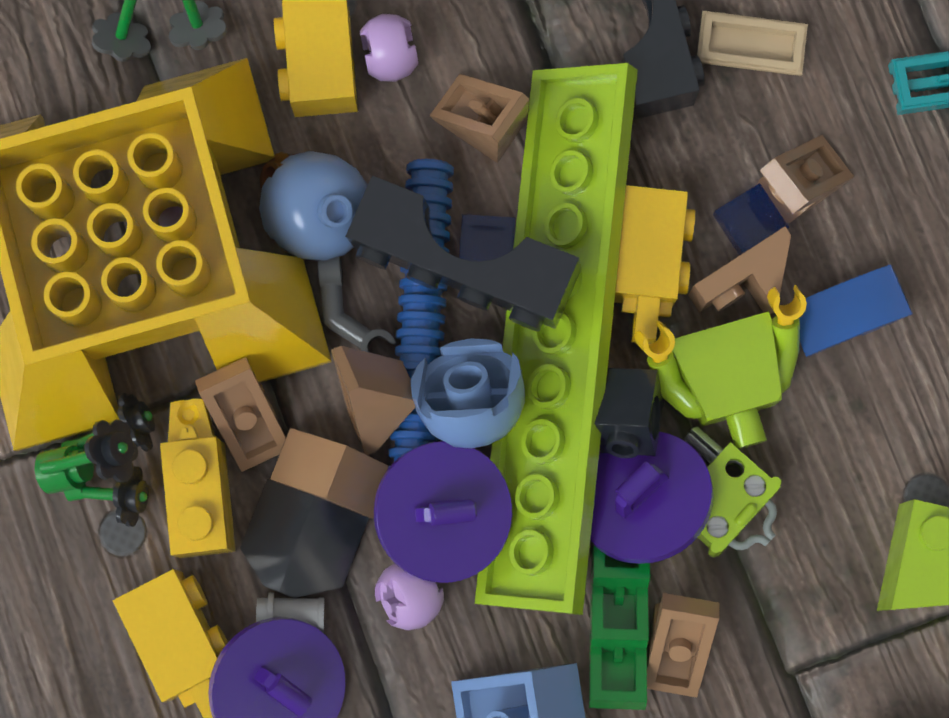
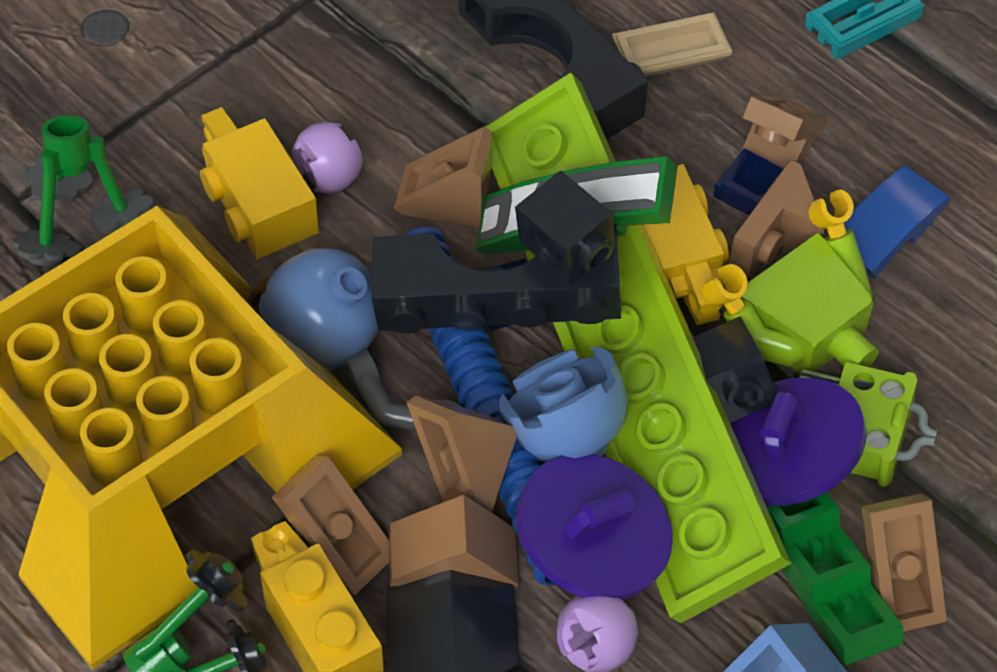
camera: 25 degrees left, 25 degrees down
(526, 255) = (566, 228): none -> black brick
(565, 213) = (631, 189): none -> slope

